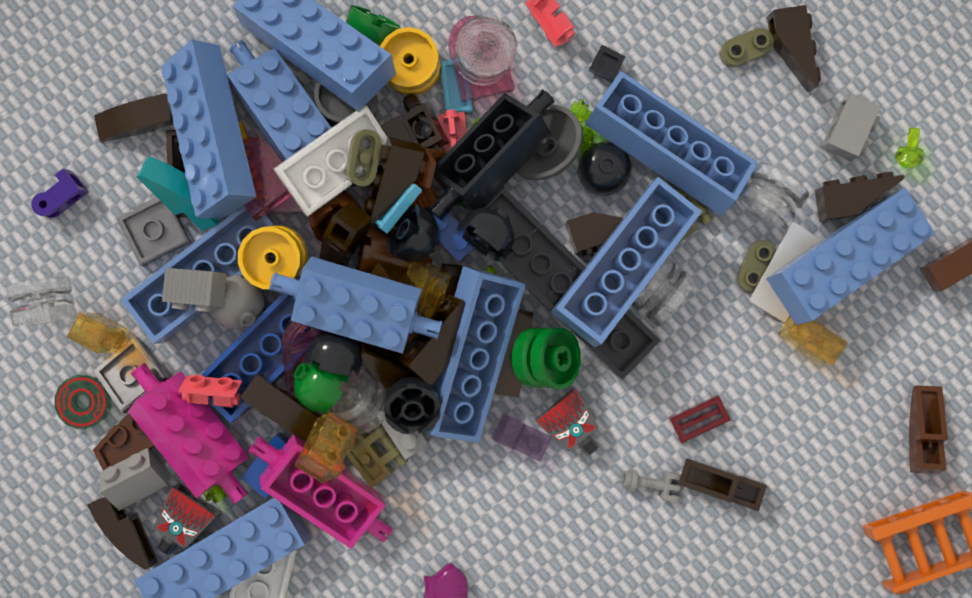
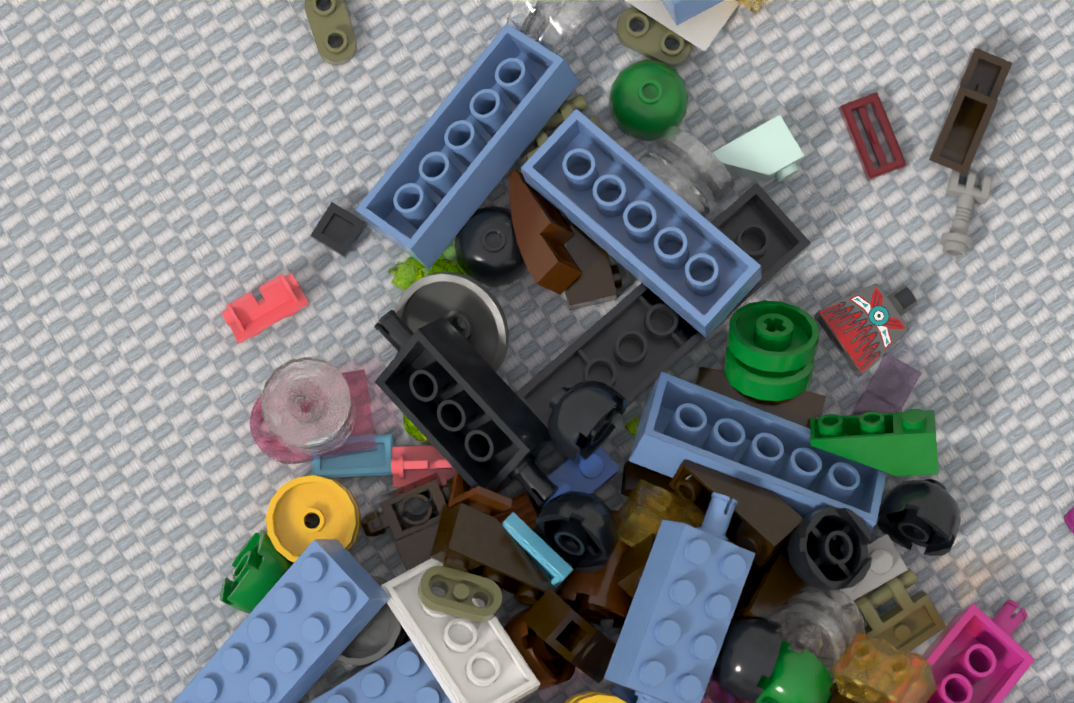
camera: 85 degrees left, 5 degrees down
(444, 467) = (922, 515): none -> black cylinder
(489, 440) = (885, 441): none -> green slope
(611, 197) = (541, 236): none -> reddish brown slope
(682, 344) = (763, 153): none -> light aqua slope
(713, 265) = (648, 99): none -> green cylinder

